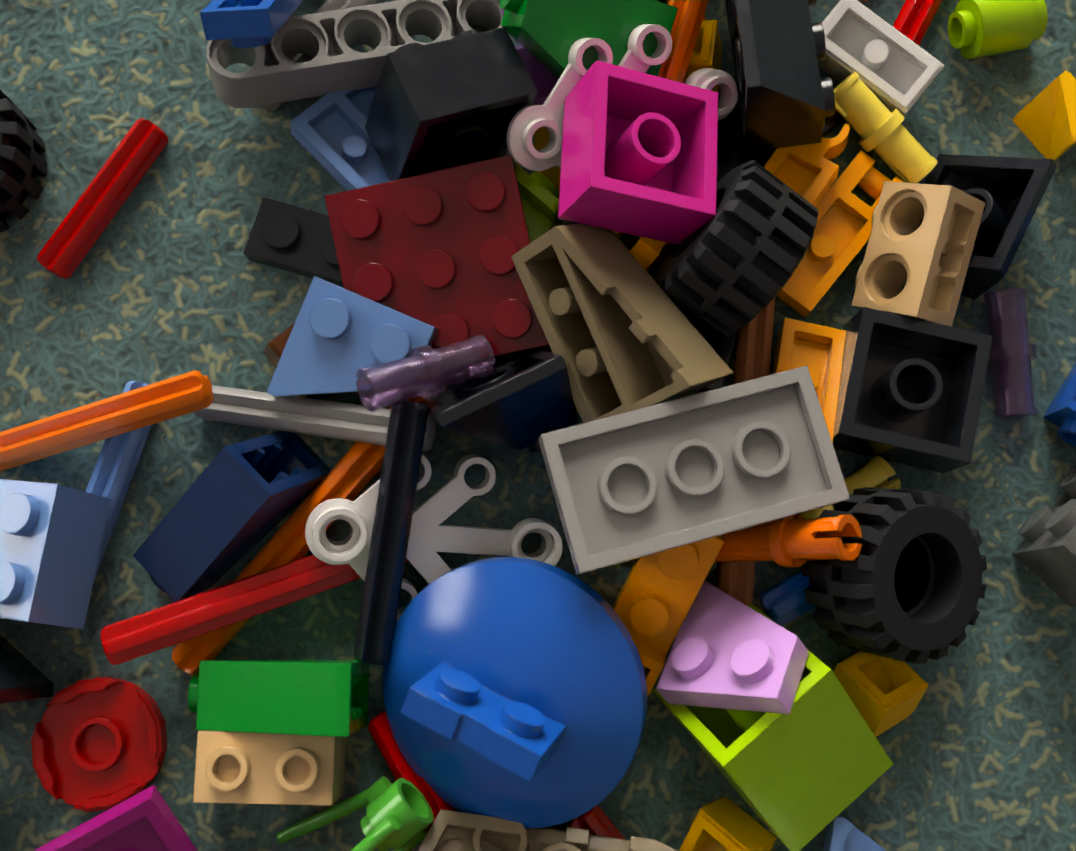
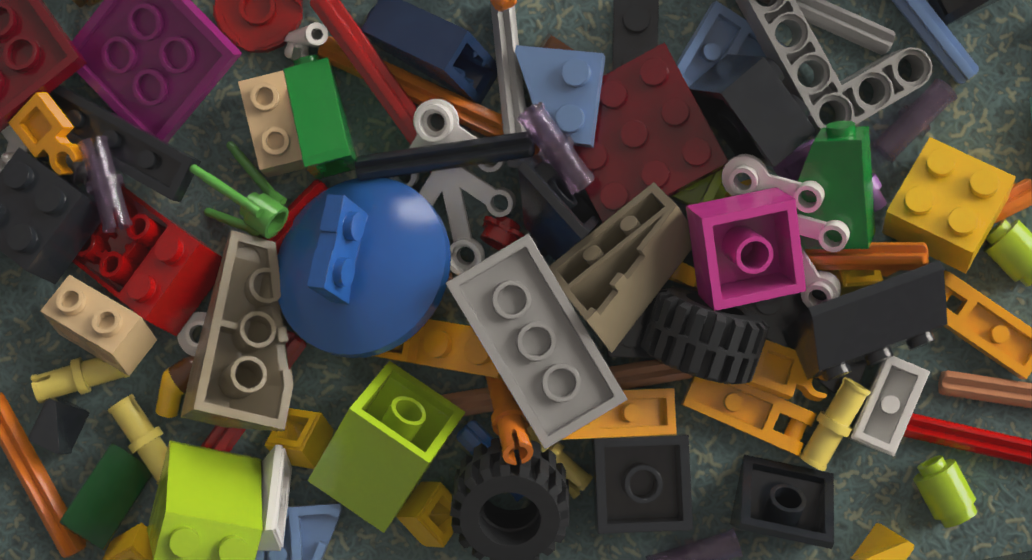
camera: 75 degrees right, 5 degrees up
(163, 688) = (303, 38): none -> white arm
(517, 486) = (500, 232): none -> red plate
(732, 658) = (422, 401): lavender wing -> none
(928, 256) = (740, 467): tan brick -> none

